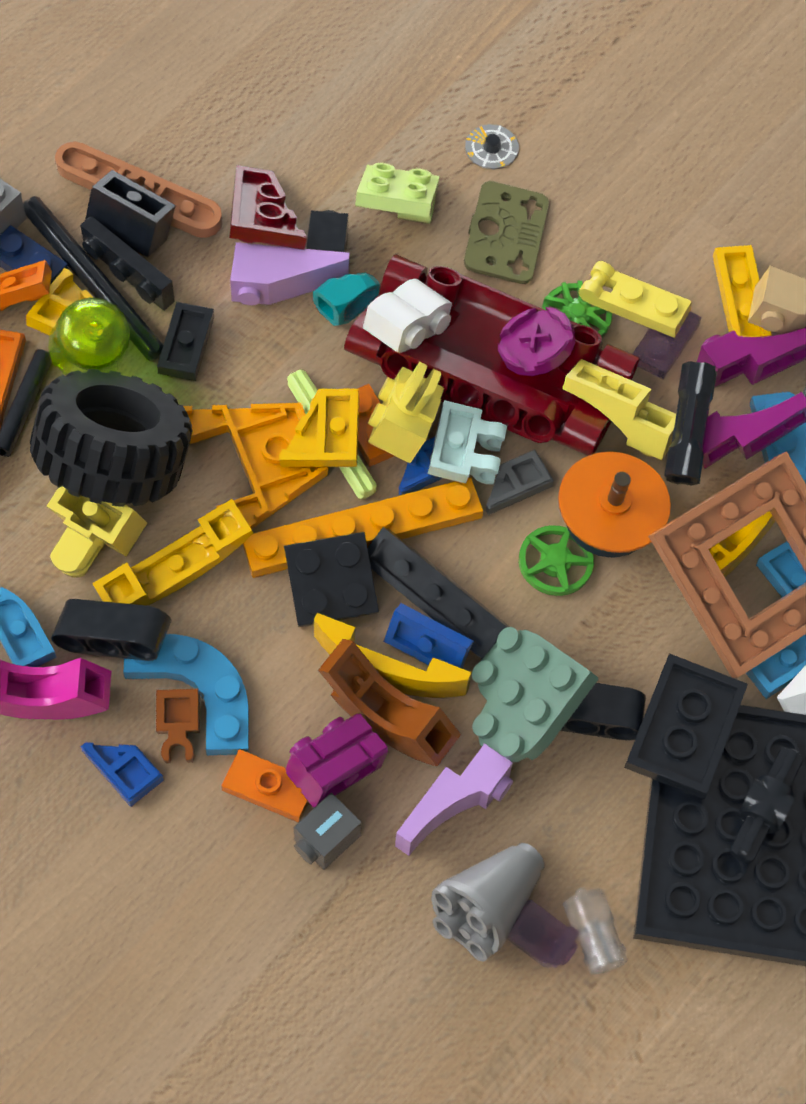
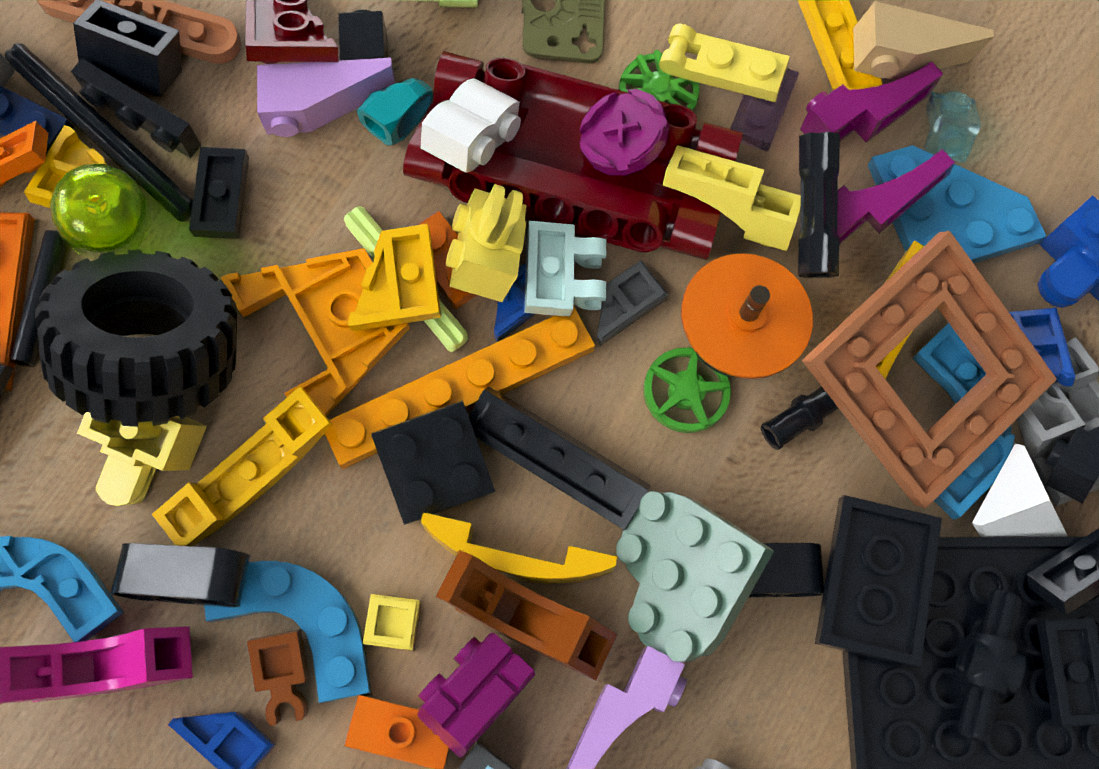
camera: 10 degrees left, 10 degrees up
(275, 701) = (392, 622): none -> light yellow tile
(426, 638) = (558, 518): blue plate -> none
(652, 593) = (804, 414): none -> black pin

